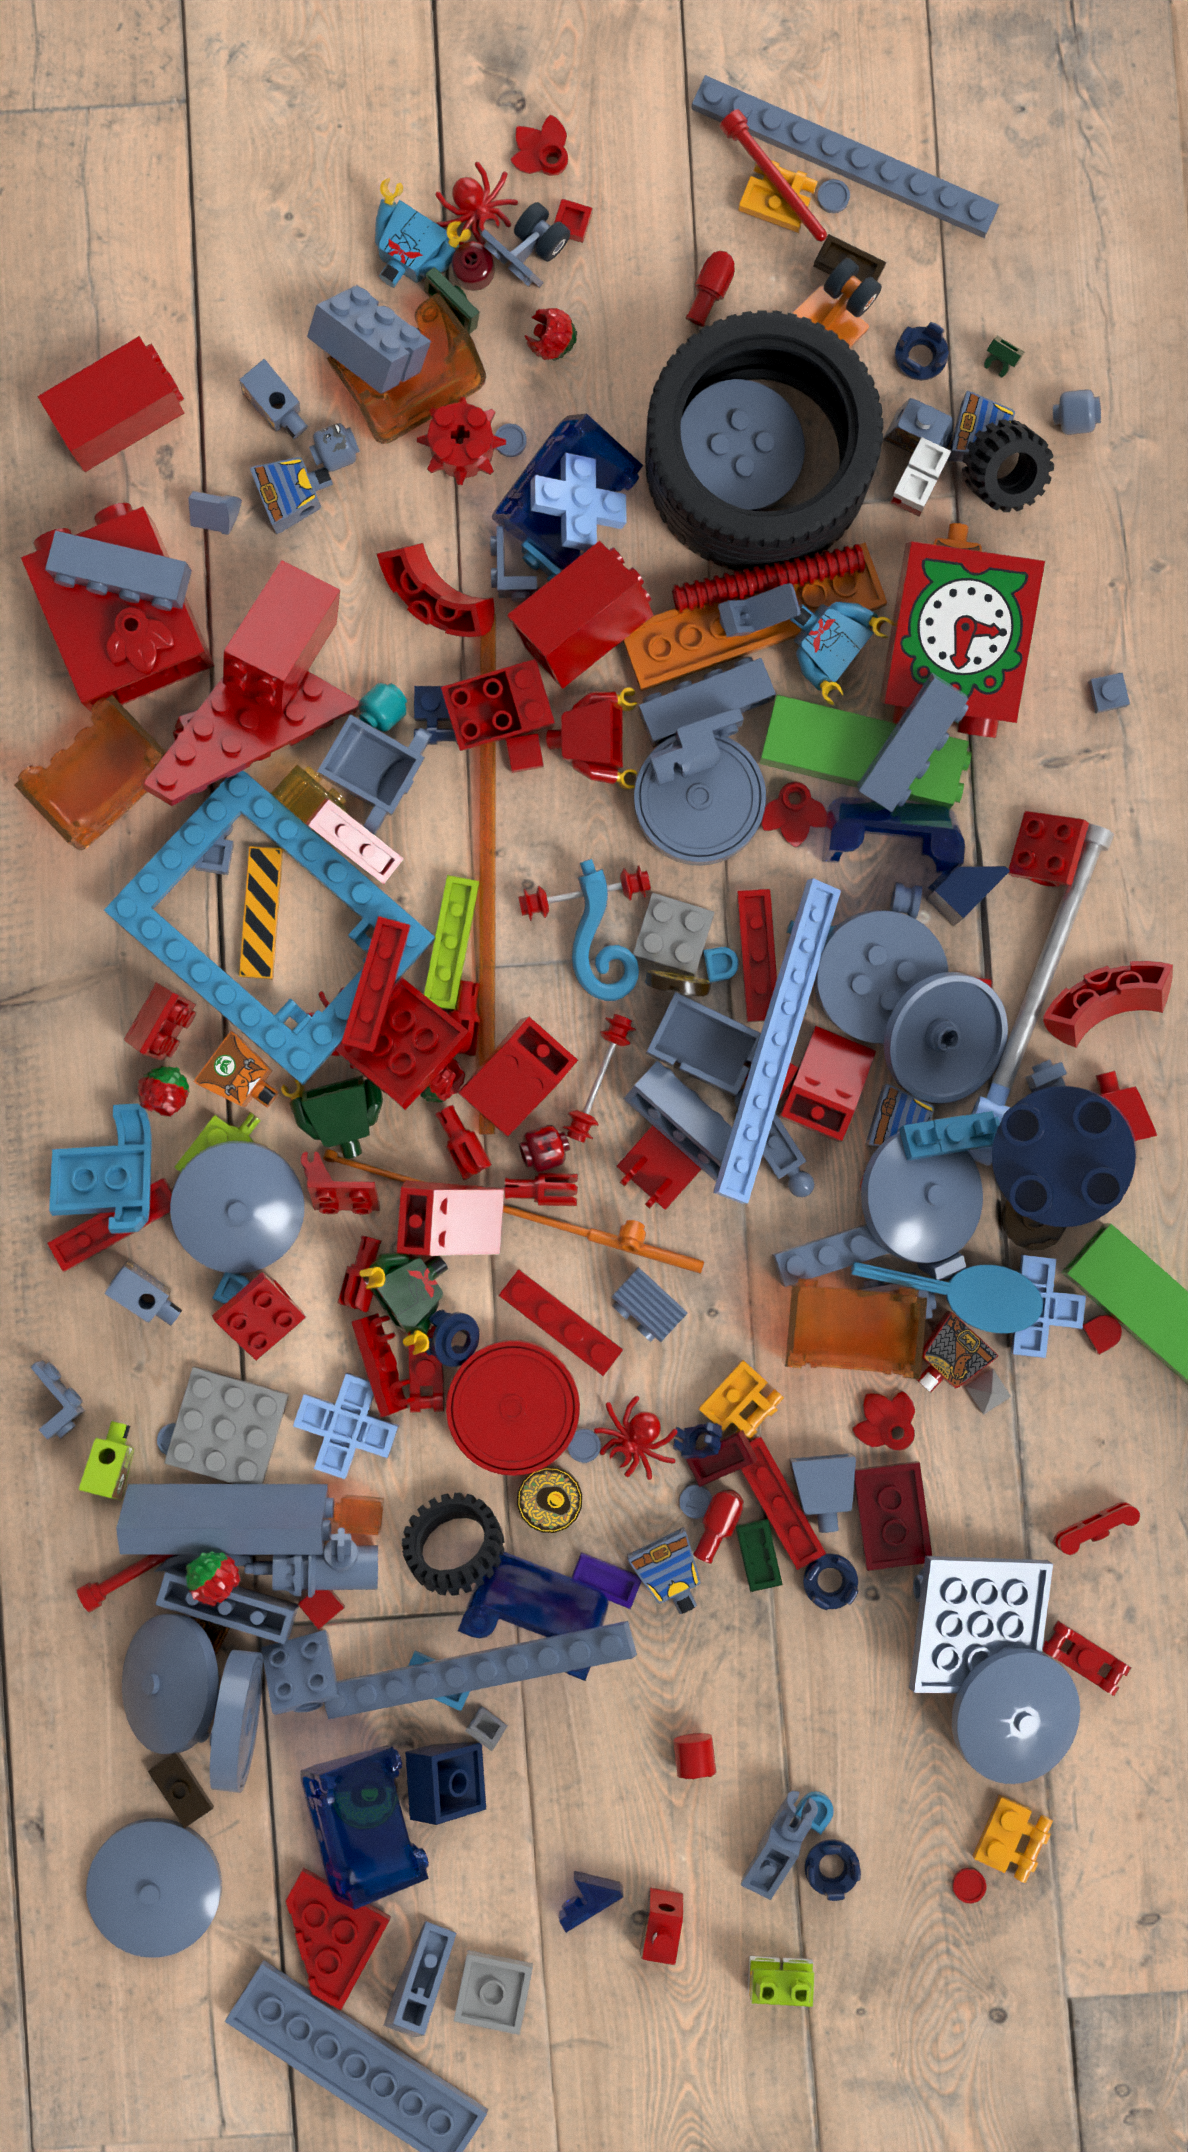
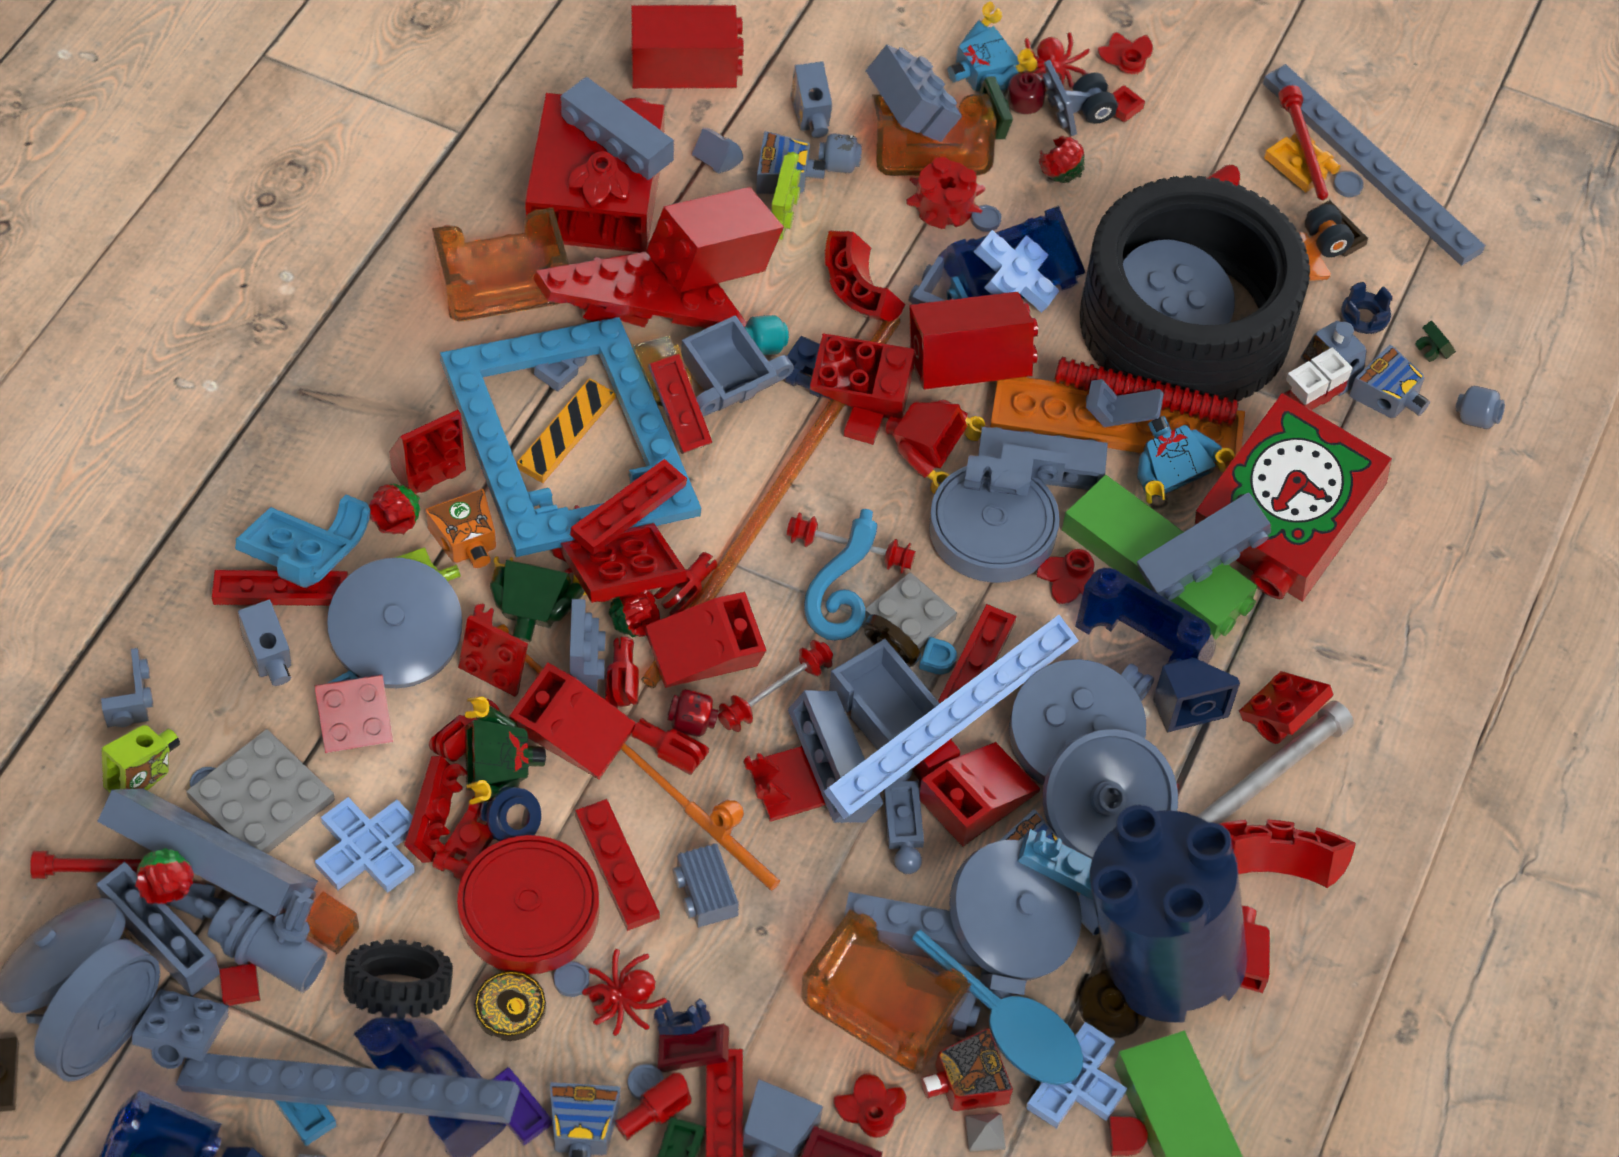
camera: 20 degrees right, 30 degrees down
(313, 530) = (787, 191): none -> lime plate
(415, 1138) = (584, 646): none -> sand blue plate
(451, 941) = (717, 519): lime plate -> none
(735, 1394) = (742, 1003): light orange plate -> none
(1023, 481) = (1421, 418): black tyre -> none
(1109, 692) = (1405, 621): sand blue plate -> none

